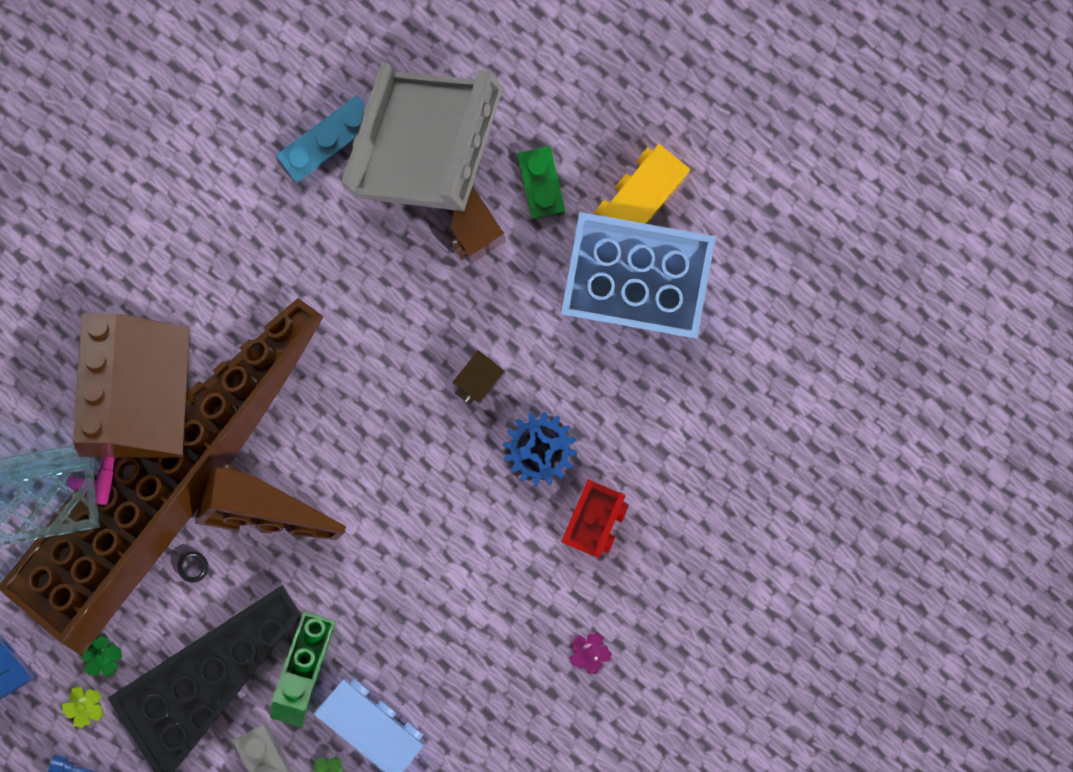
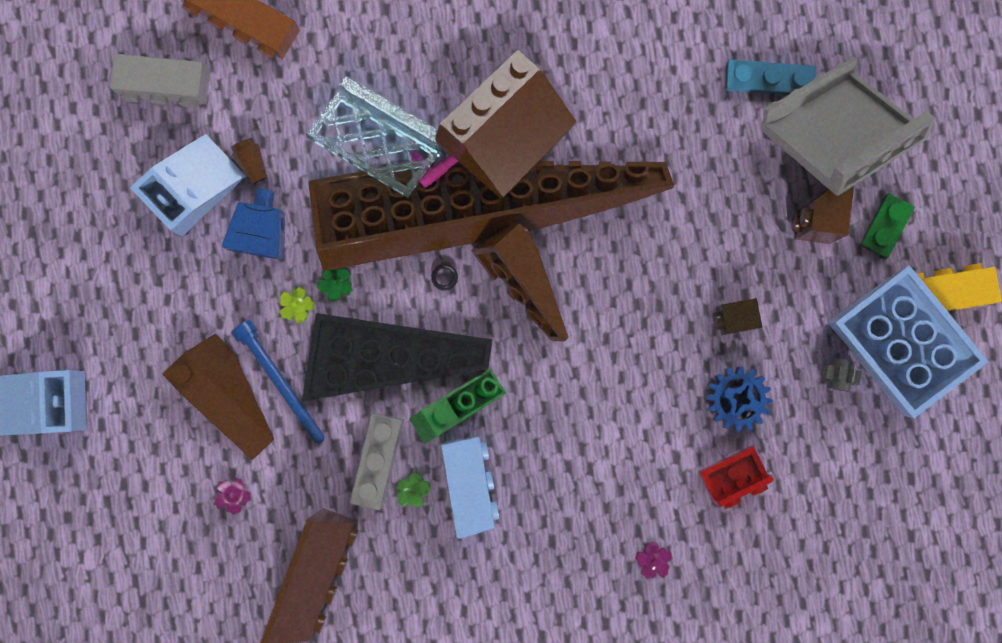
camera: 40 degrees right, 0 degrees up
(609, 351) = (841, 374): none -> dark grey gear

